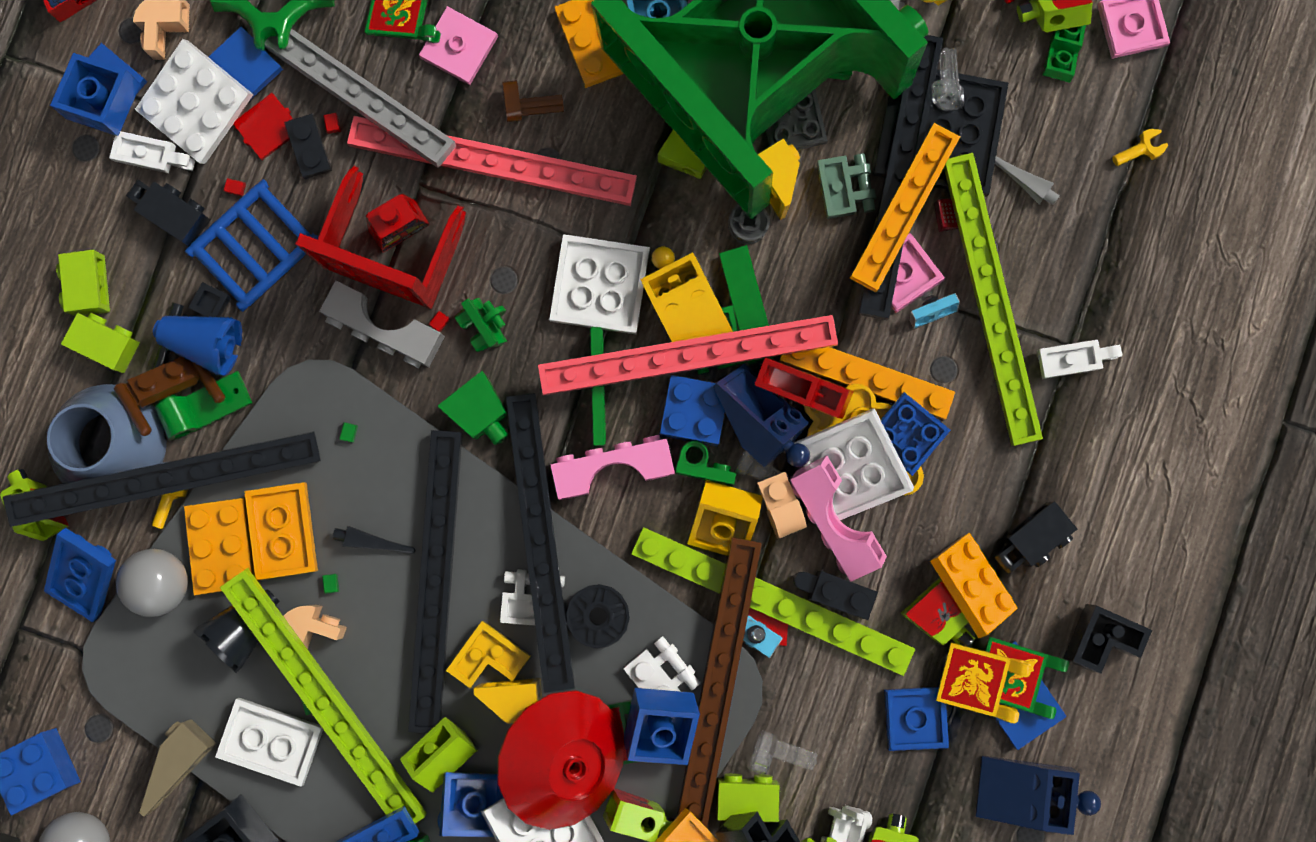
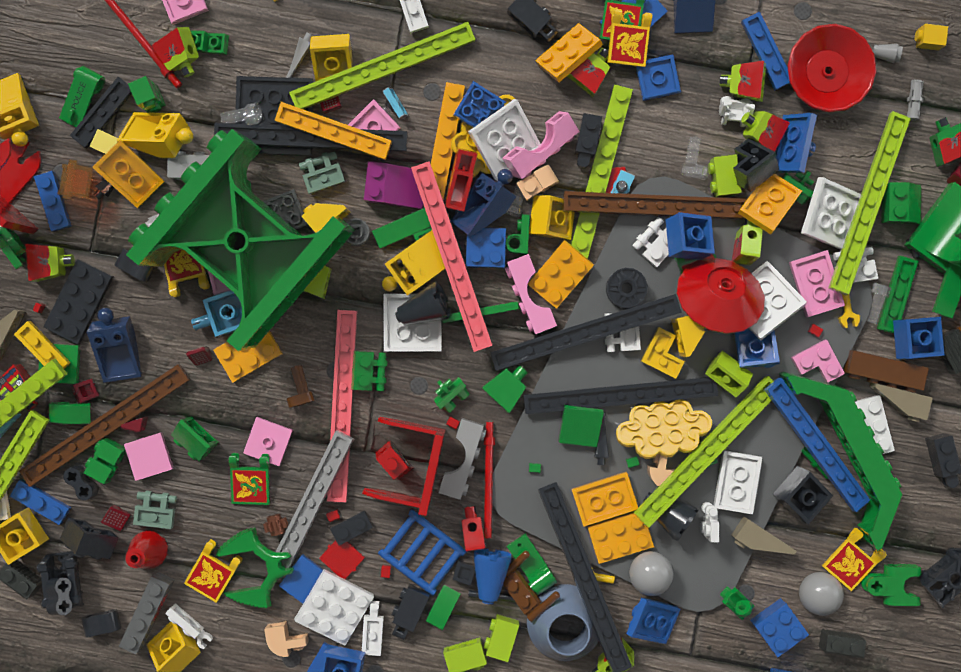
camera: 95 degrees left, 5 degrees up
(83, 710) = (736, 602): none -> green hips
(163, 262) = (443, 607): none -> green slope
(210, 686) = (710, 525): none -> white plate
(255, 323) = (473, 540): none -> red torso
(332, 35) = (275, 524): none -> copper gear
(370, 639) = (663, 429): none -> yellow plate
(398, 511) = (580, 426): none -> green tile
(399, 370) = (489, 441): none -> red bar
(540, 199) = (363, 371): none -> green plate
(618, 304) = (425, 306): none -> black cone
(636, 518) = (560, 274): none -> light orange plate
(810, 282) = (391, 186): none -> magenta slope
(1021, 225) = (330, 55): none -> yellow slope

